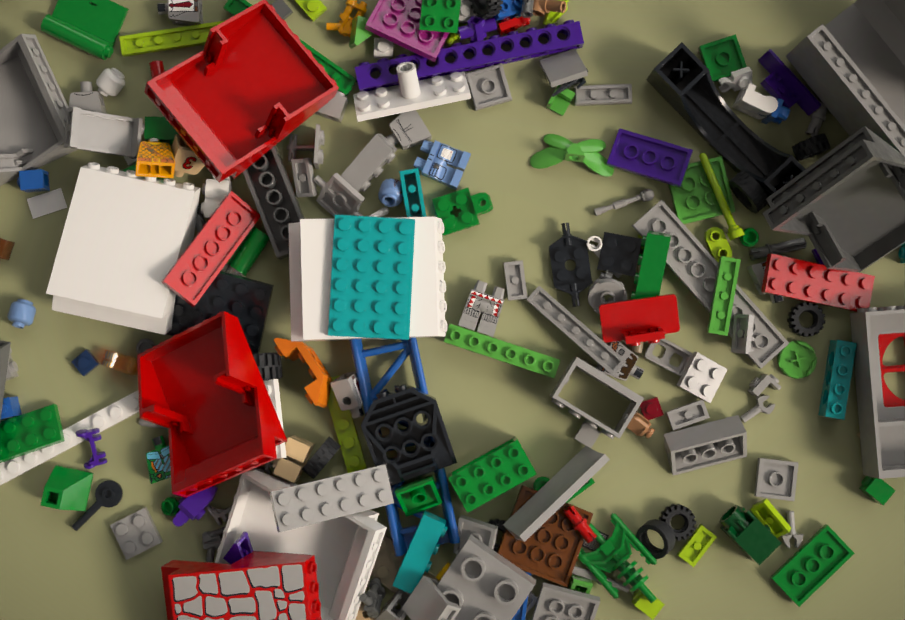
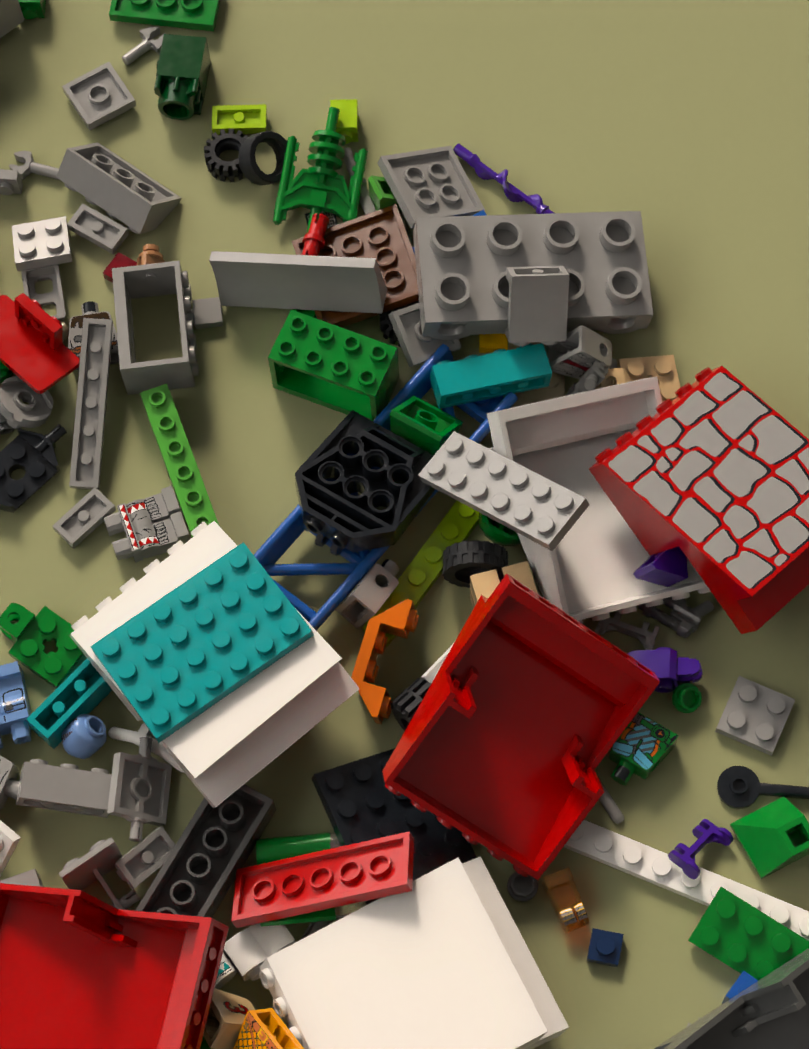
camera: 130 degrees left, 20 degrees down
(769, 515) = (144, 71): lime plate -> none

